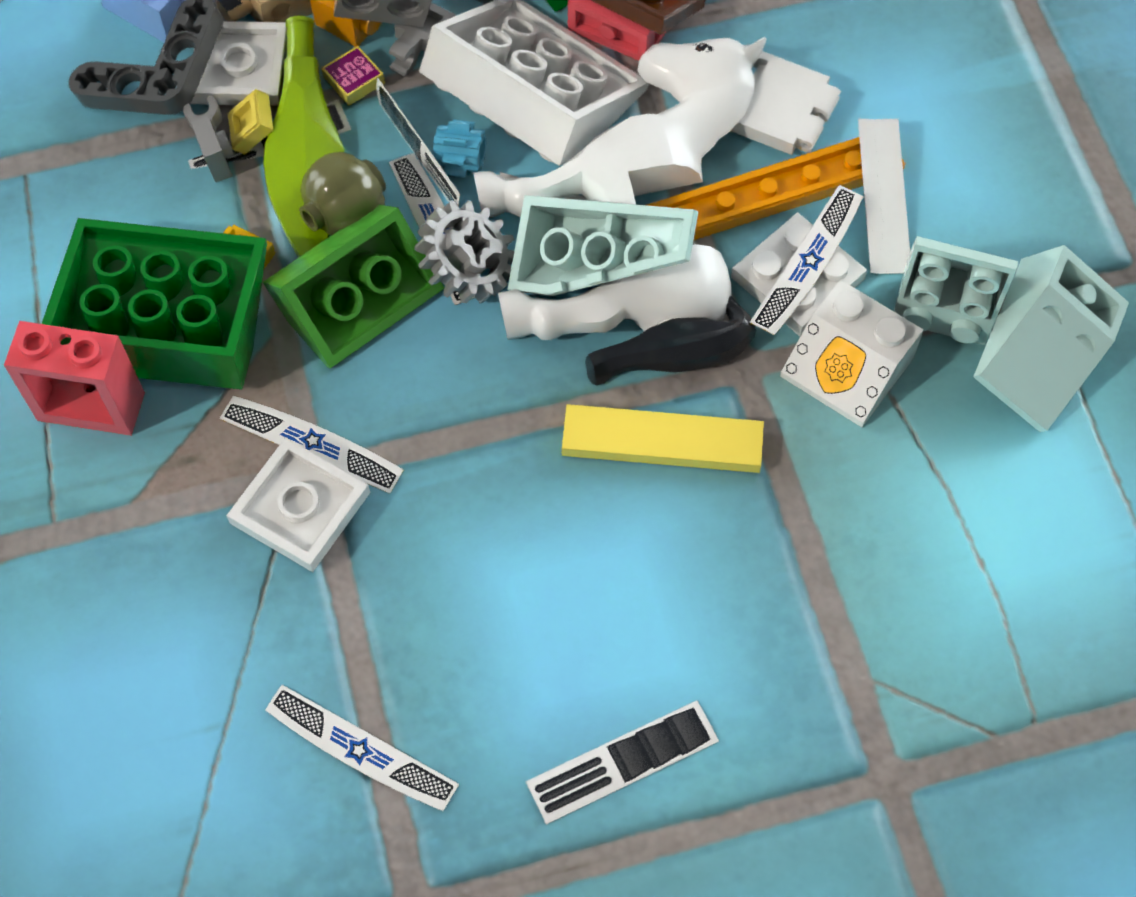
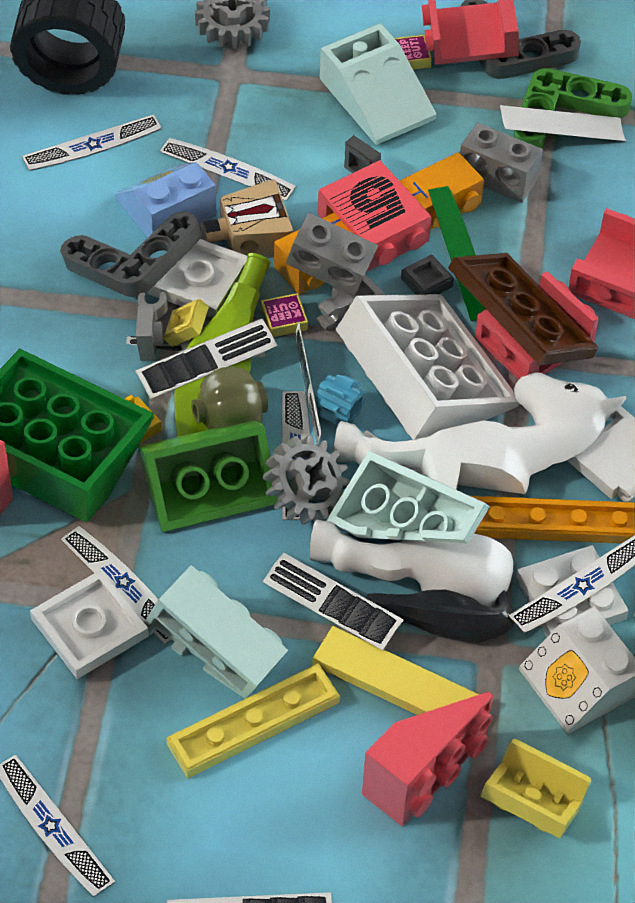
camera: 20 degrees right, 10 degrees down
(291, 154) = (206, 358): none -> sticker
(448, 460) = (216, 632): none -> light aqua wedge
(526, 543) = (252, 720): none -> light yellow tile
(553, 376) = (333, 601): none -> sticker
(737, 514) = (423, 754): none -> coral slope
(864, 500) = (537, 788): none -> light yellow bracket

